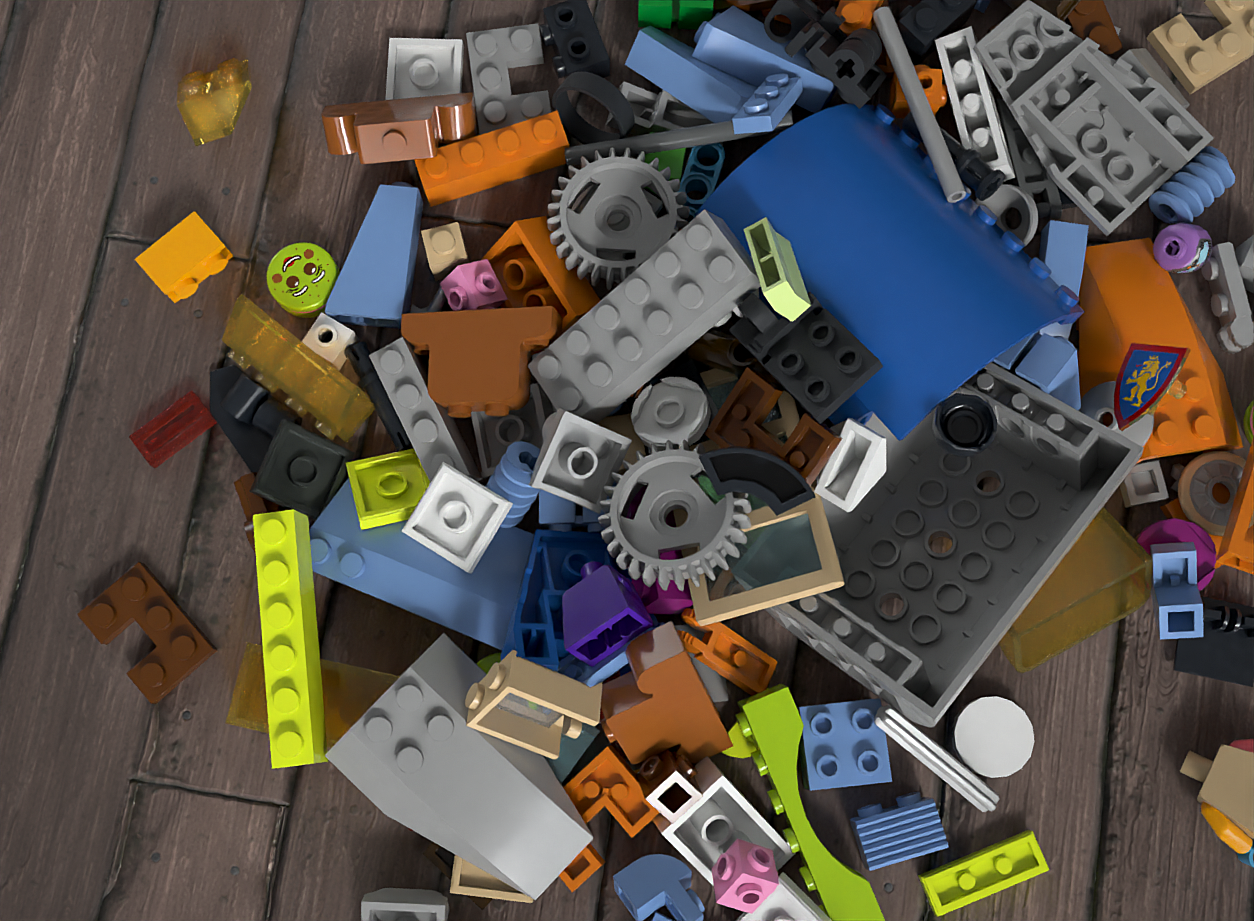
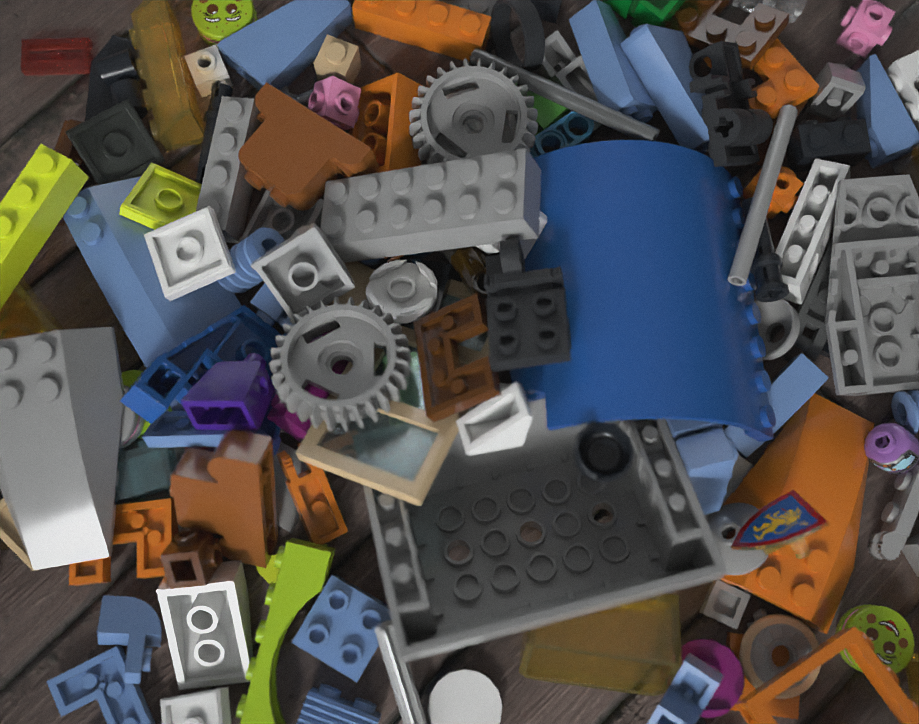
camera: 30 degrees right, 0 degrees up
(531, 705) = (125, 423): tan window -> none
(744, 876) = (194, 668): bright pink brick -> none
(758, 474) = (413, 372): black brick -> none
(768, 104) = (644, 113): medium blue plate -> none
(777, 270) = (547, 233): yellowish green piece -> none

